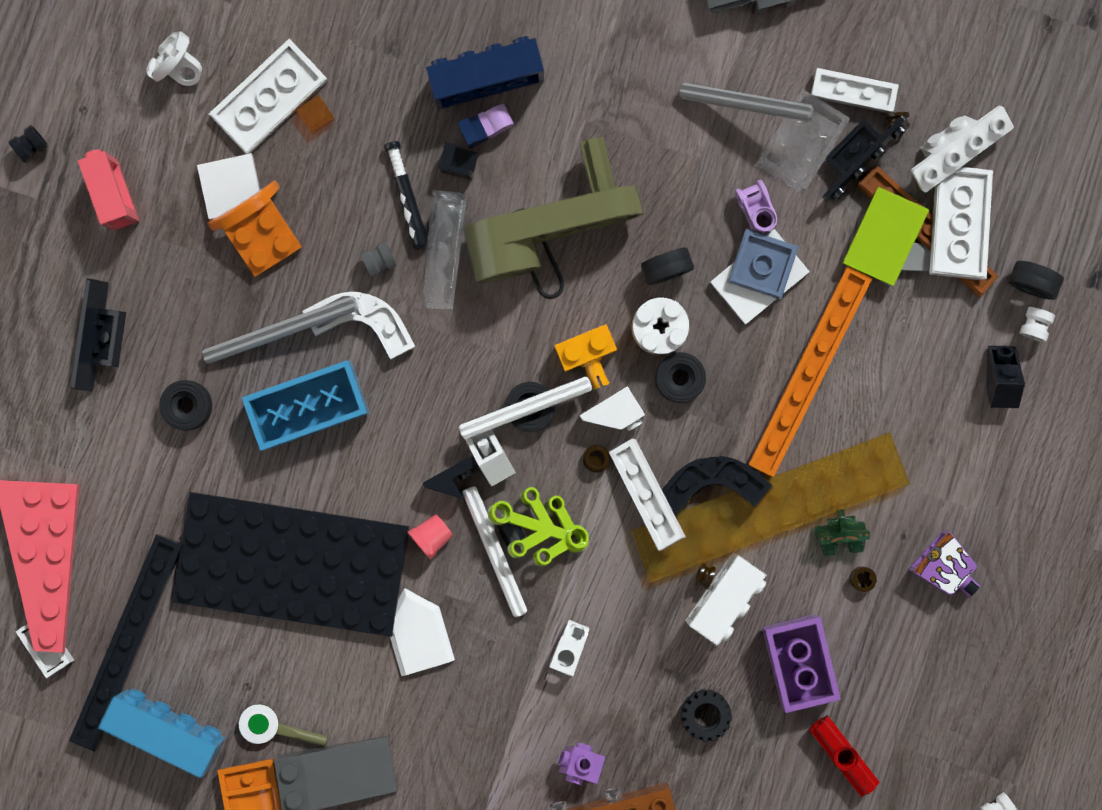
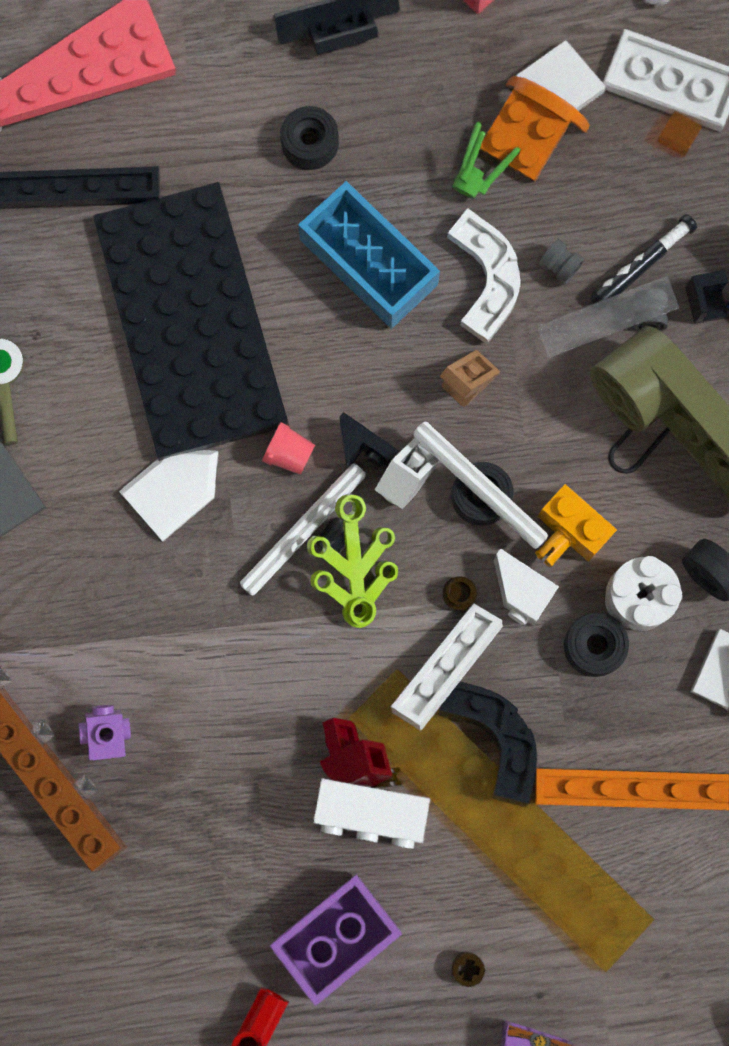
camera: 70 degrees right, 10 degrees down
(278, 297) = (469, 178): none -> bright green plant
(280, 330) = (437, 195): light grey axle -> none
(436, 373) = (468, 377): none -> medium nougat slope
(569, 648) = (232, 660): white leg -> none
(683, 595) = (353, 760): none -> dark red brick
(711, 732) = (202, 859): black tyre -> none
(842, 530) = (514, 914): clear green hips -> none

